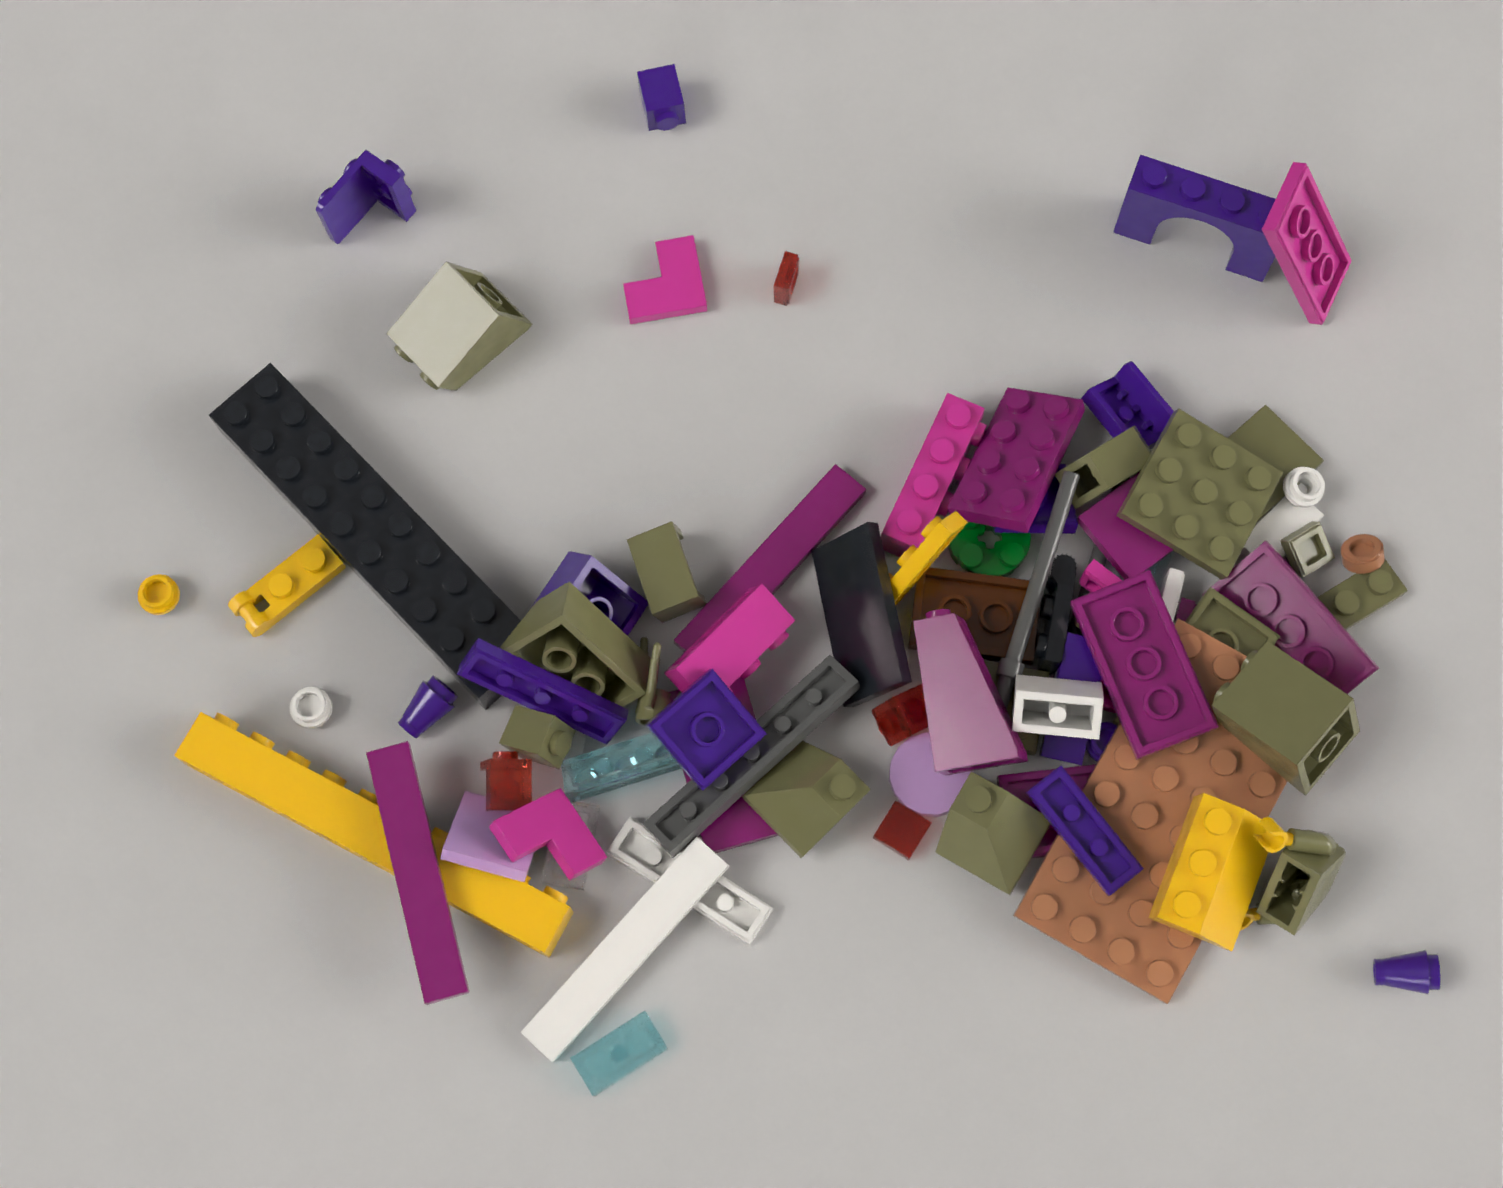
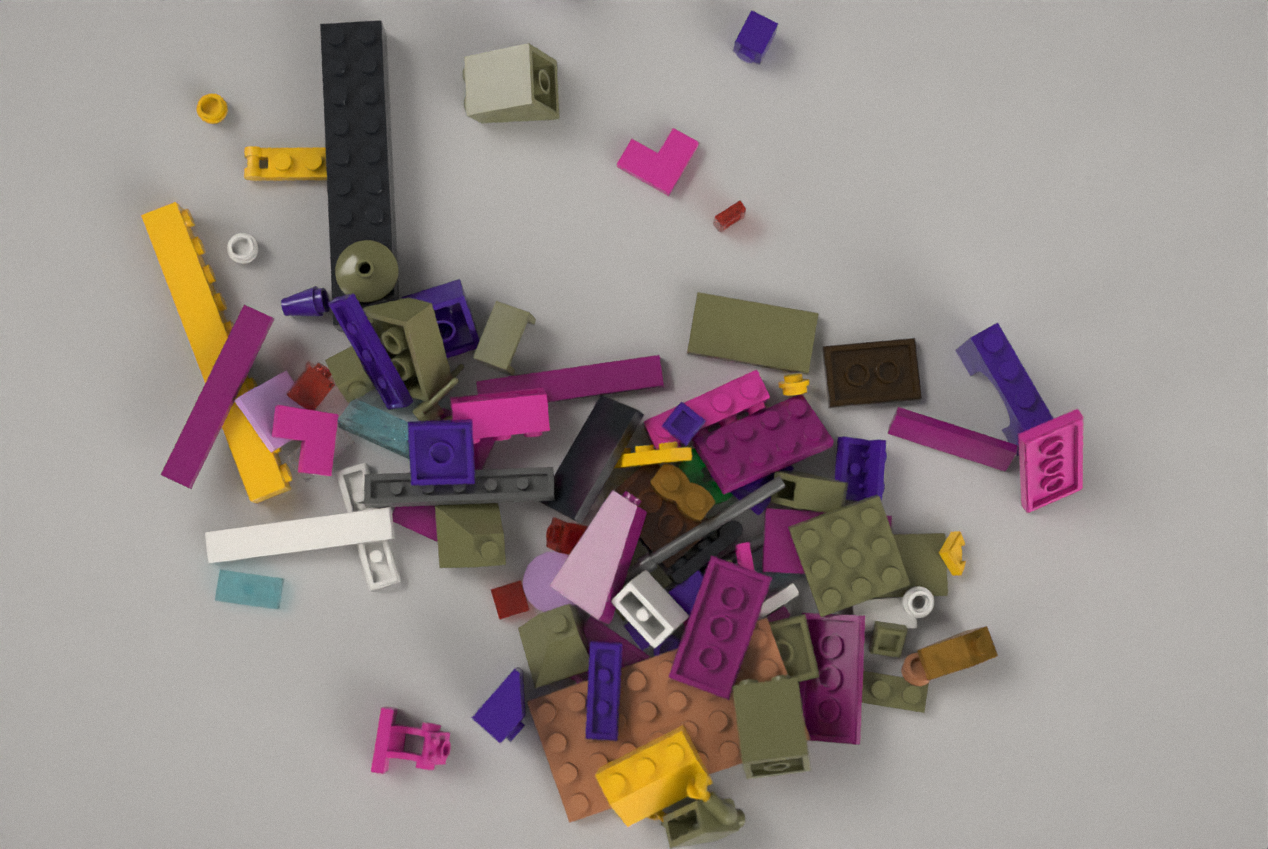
camera: 35 degrees right, 10 degrees up
(487, 621) = (377, 282): none -> olive dish
(907, 371) = (752, 333): none -> olive tile
(925, 498) = (683, 423): none -> dark purple tile
(961, 1049) = (391, 743): none -> dark pink tile
(992, 570) = (688, 497): none -> pearl gold brick
(993, 384) = (794, 384): none -> yellow plate
(1000, 936) = (504, 708): none -> dark purple slope
(1055, 316) = (871, 373): none -> dark brown tile
(1190, 311) = (952, 439): none -> magenta tile
(1289, 418) = (952, 553): none -> yellow tile
(1386, 501) = (957, 652): none -> pearl gold slope

